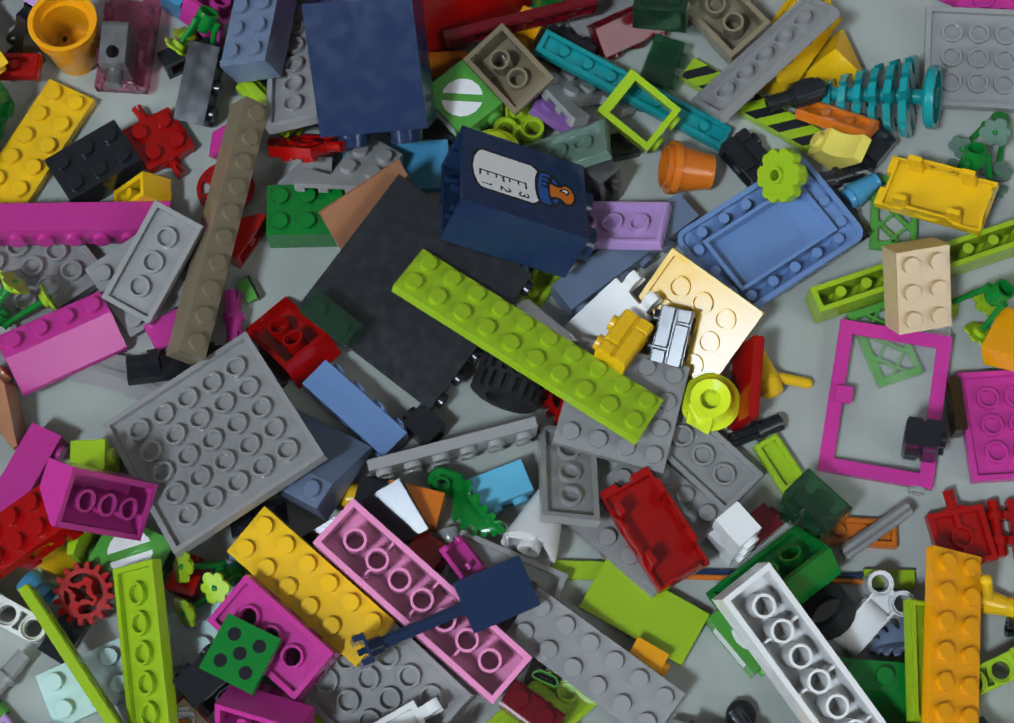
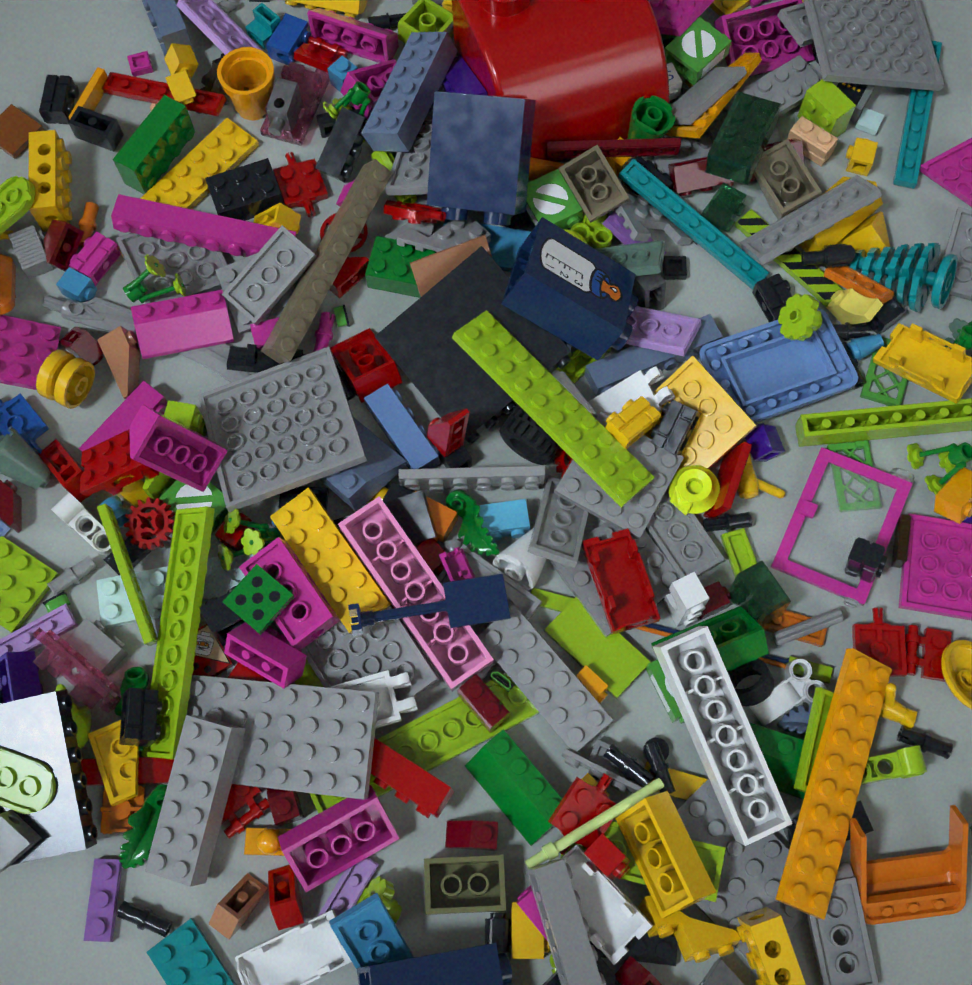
camera: 15 degrees right, 0 degrees up
(332, 318) = (400, 350): clear green brick -> none
(413, 401) = (448, 431): none -> red slope
(616, 96) = (679, 223): lime window -> none
(685, 169) = (721, 296): orange piece -> none
(776, 328) = (764, 442): none -> dark purple brick
(917, 285) = (892, 432): tan brick -> none

